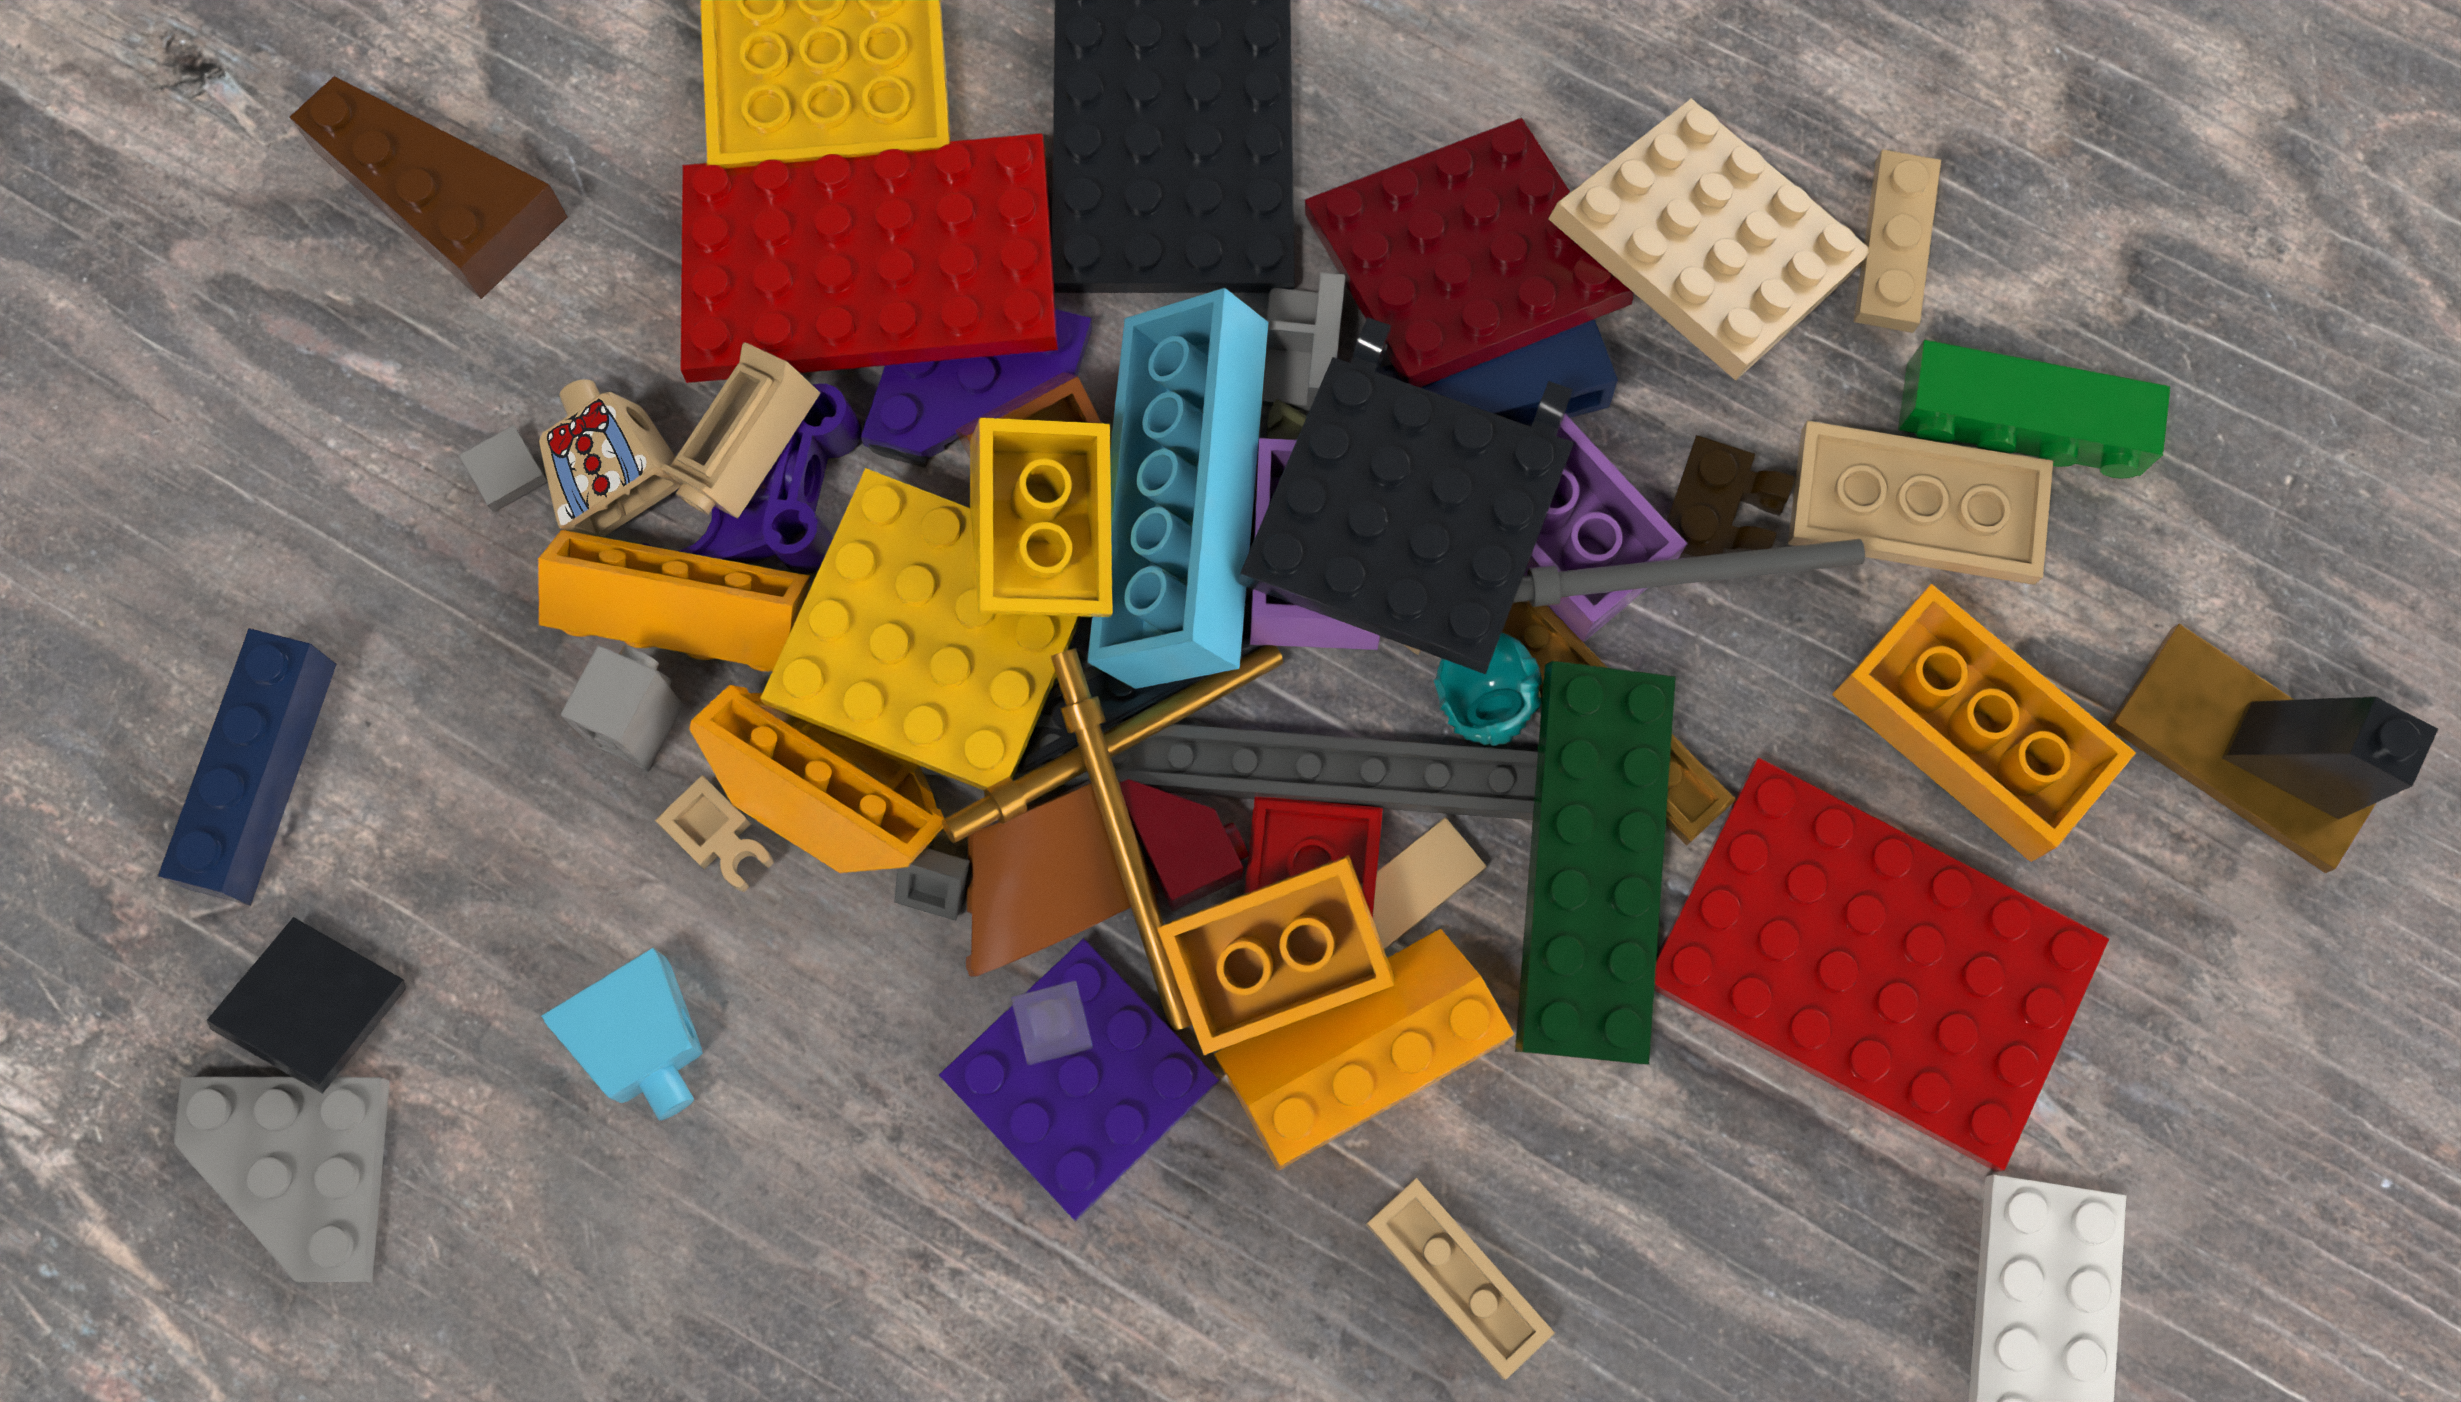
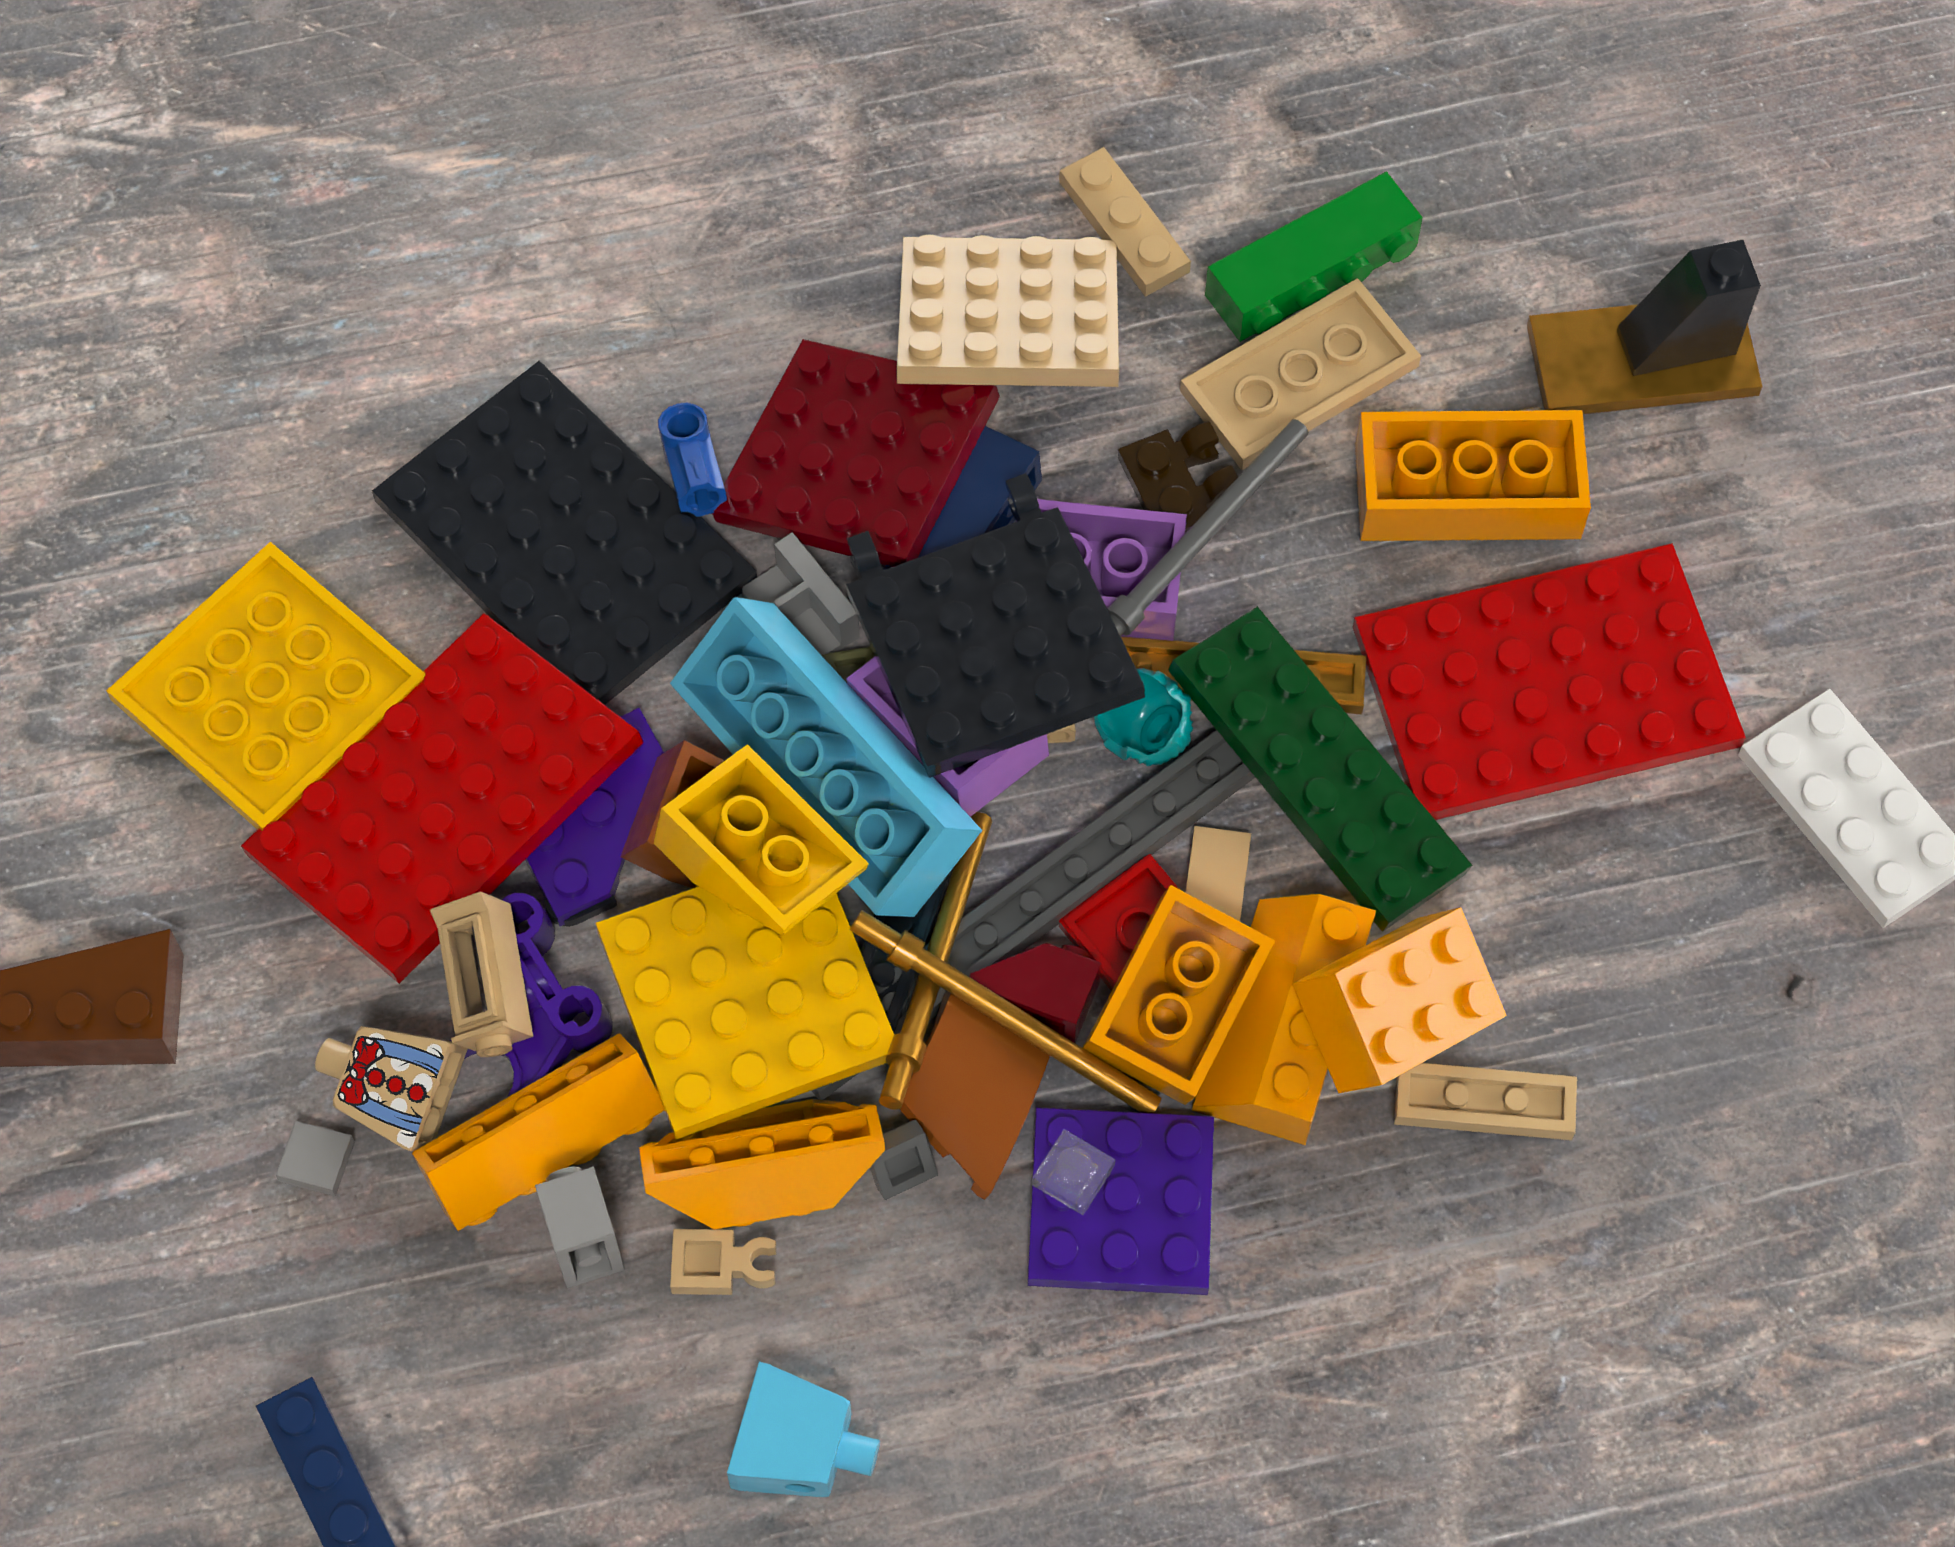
camera: 40 degrees left, 10 degrees down
(1327, 143) = (691, 459): none -> blue piece
(1454, 1133) = (1399, 1000): none -> light orange brick

